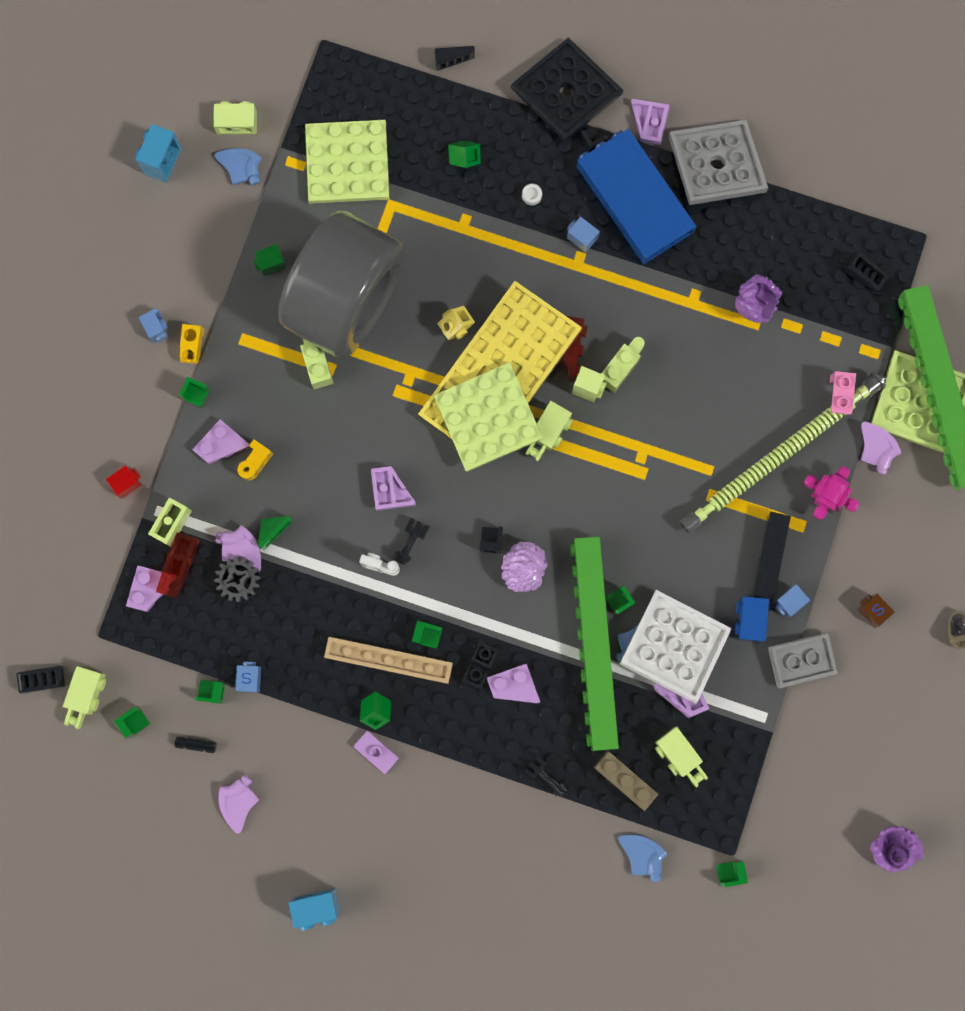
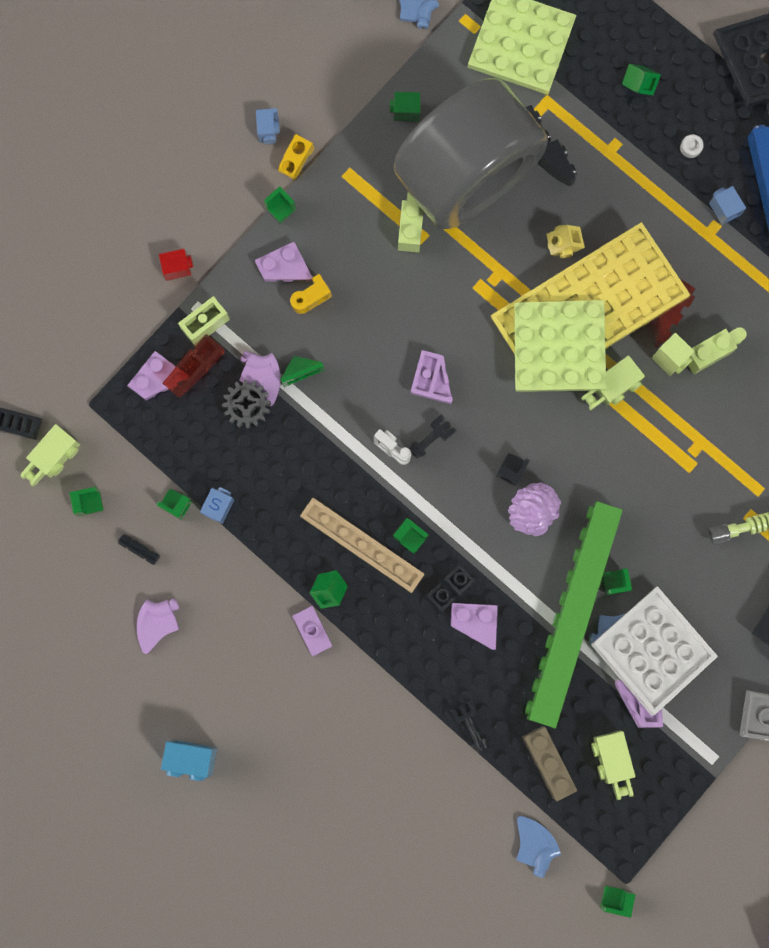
camera: 20 degrees right, 0 degrees up
(416, 251) = (555, 156): none -> black slope
(752, 619) = (742, 656): blue piece -> none

